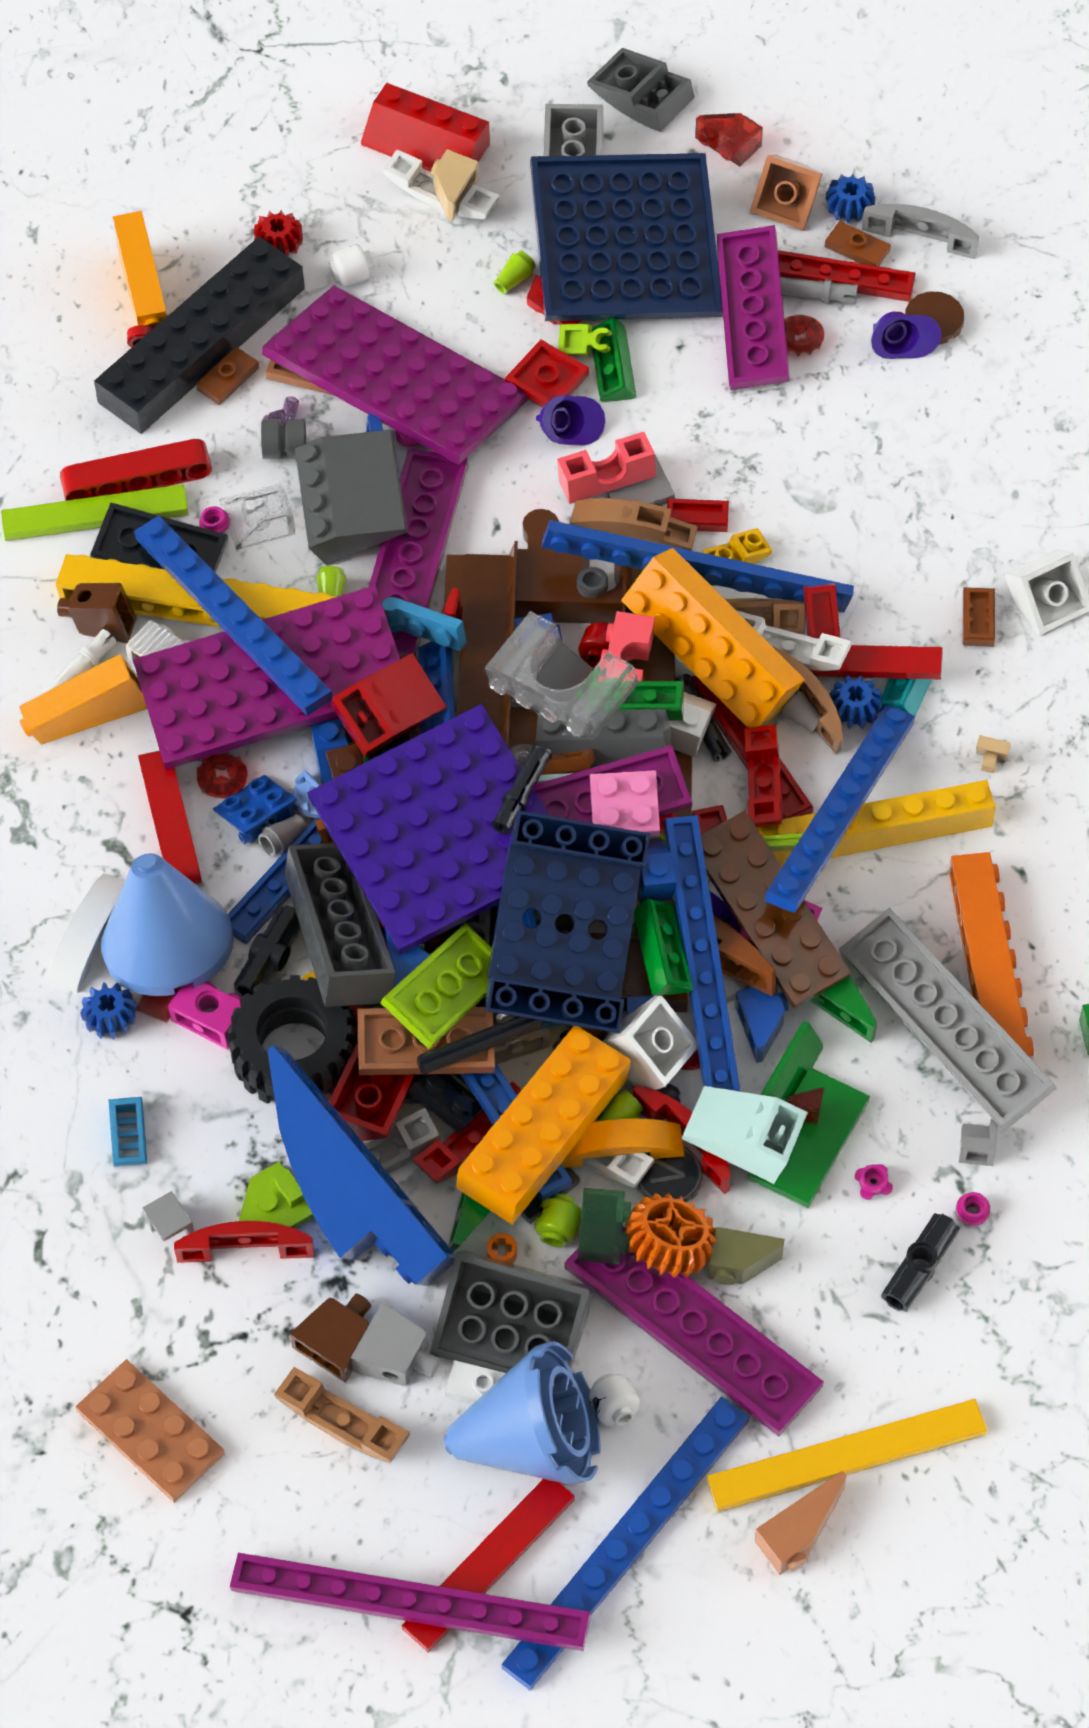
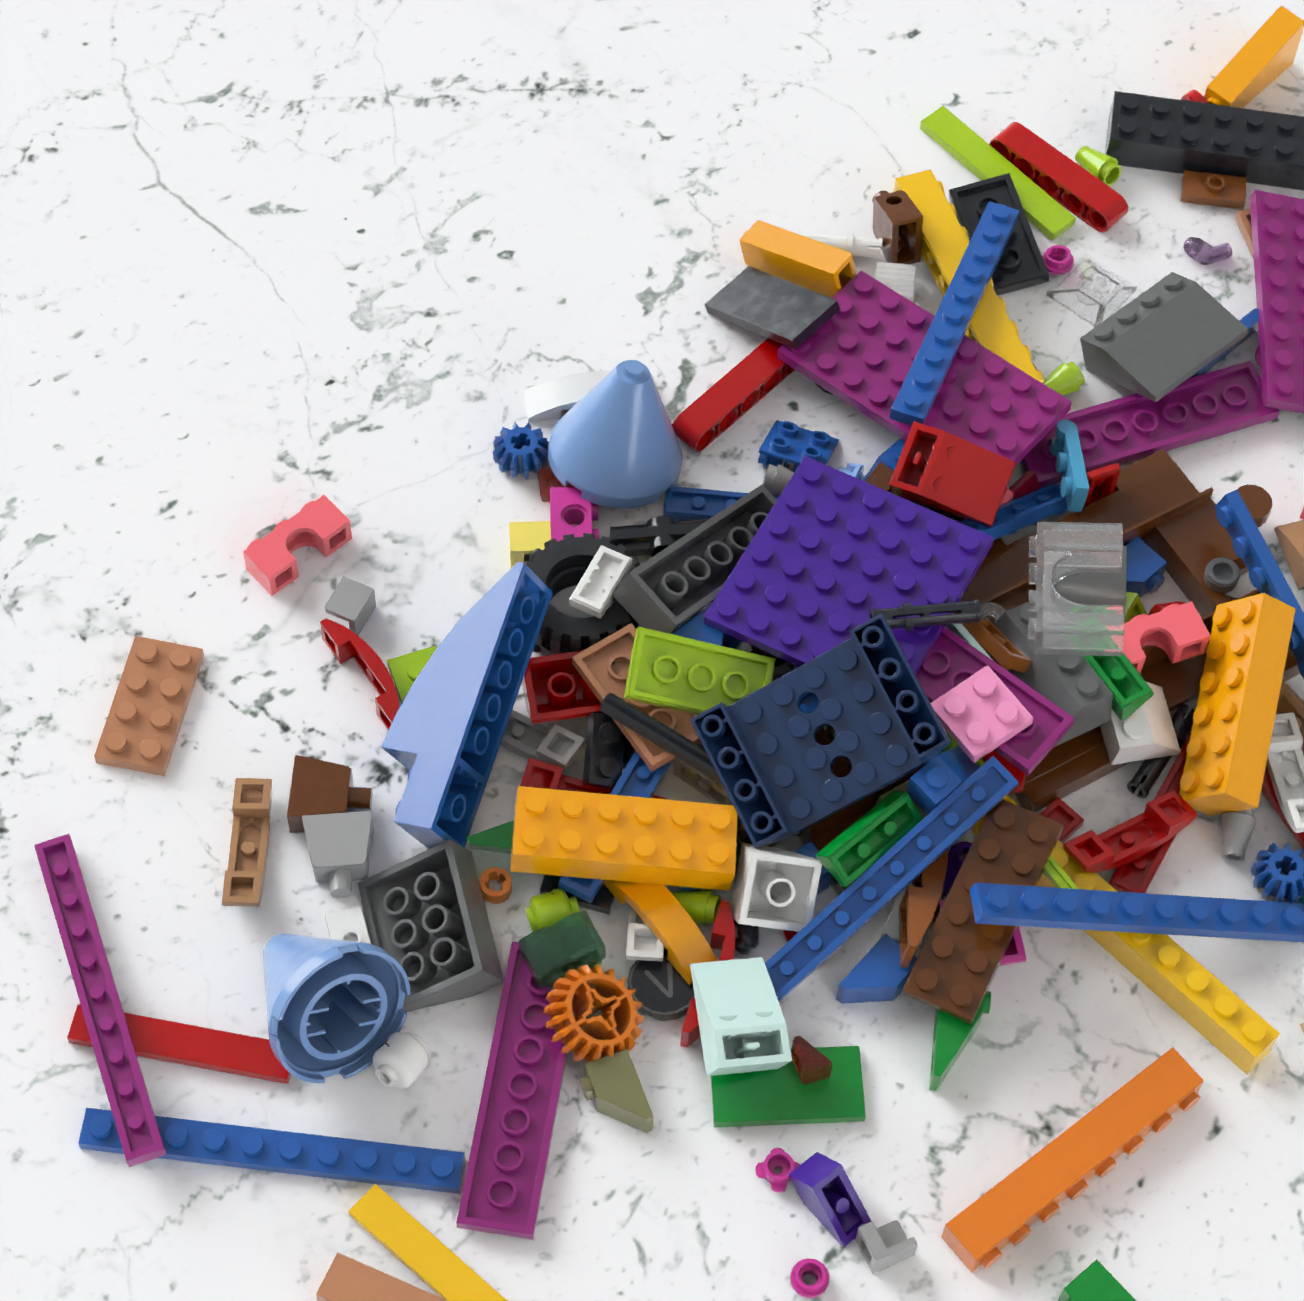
camera: 55 degrees right, 0 degrees up
(79, 1258) = (316, 526): none -> coral arch
(115, 744) = (772, 307): none -> tile
(127, 1105) = (433, 534): dark azure slope -> none
(145, 437) = (1099, 164): none -> lime cone
(203, 1051) = (526, 538): none -> light yellow panel
(222, 786) = (825, 413): clear red gear -> none
(282, 438) = (1178, 255): dark grey wheel -> none
(303, 1010) = (600, 582): none -> white plate
(794, 1064) = (865, 1028): green slope -> none
(829, 724) = (1241, 861): medium nougat slope -> none
(920, 1156) = (830, 1197): none -> dark purple slope
(929, 1246) = (743, 1257): black piece -> none
(947, 1019) = (987, 1140): light grey plate -> none

